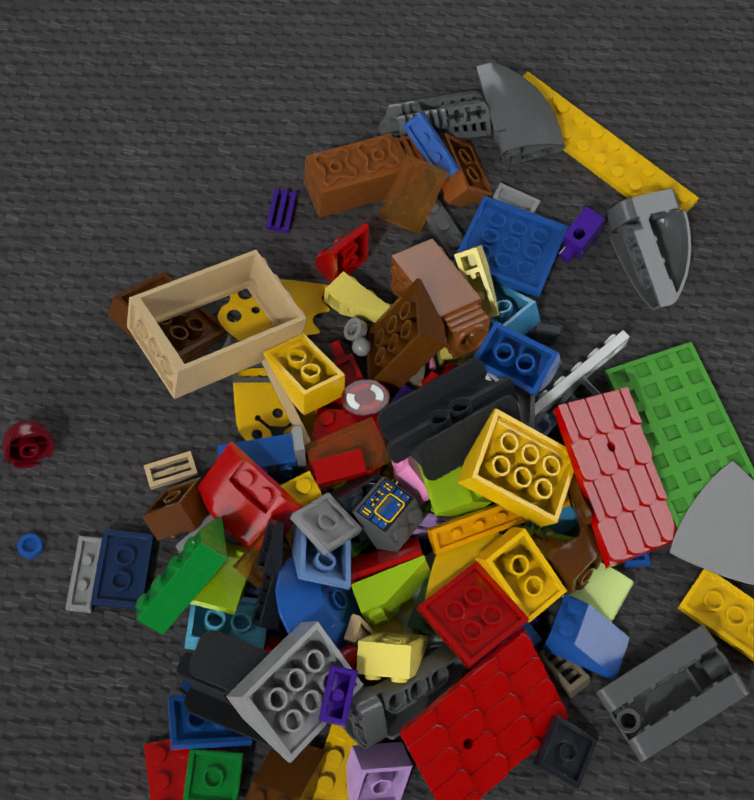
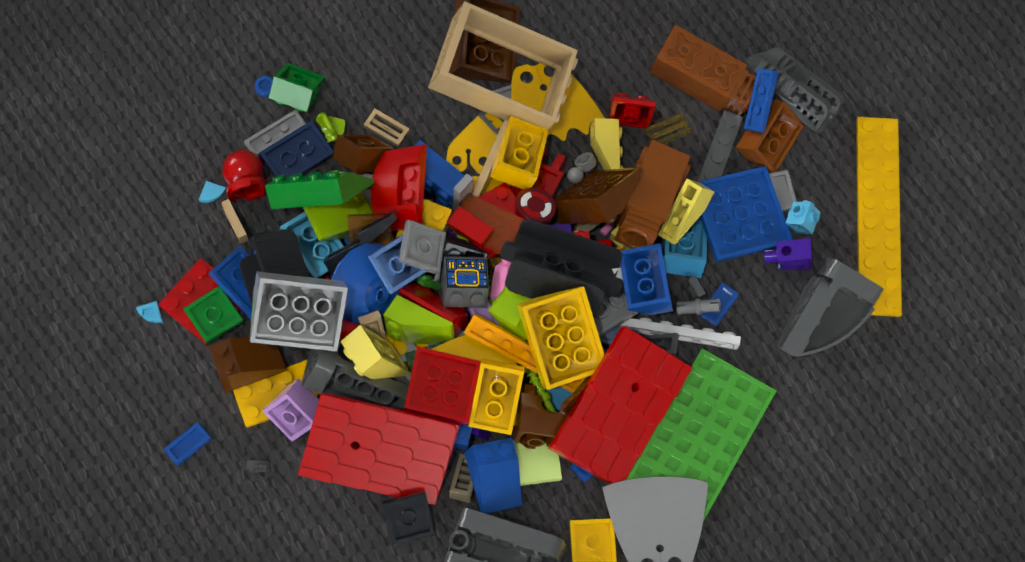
camera: 45 degrees right, 5 degrees up
(26, 443) = (324, 22): dark red cylinder -> none
(59, 518) = (296, 87): none -> green slope
(87, 680) = (211, 192): none -> medium azure tile
(100, 634) = (244, 176): none -> red tile
(126, 517) = (331, 126): none -> lime piece
(137, 681) = (234, 221): none -> tan tile
(293, 195) = (647, 35): dark purple tile -> none
(338, 696) = (314, 339): dark purple slope -> none
(388, 228) = (683, 123): none -> clear yellow tile
(412, 194) = (716, 117): clear orange tile -> none
(518, 115) = (849, 137): dark grey panel -> none
(554, 202) = (803, 217): none -> medium azure brick
(568, 340) = (698, 306): none -> light grey pin
(574, 327) = (727, 297): none -> blue tile

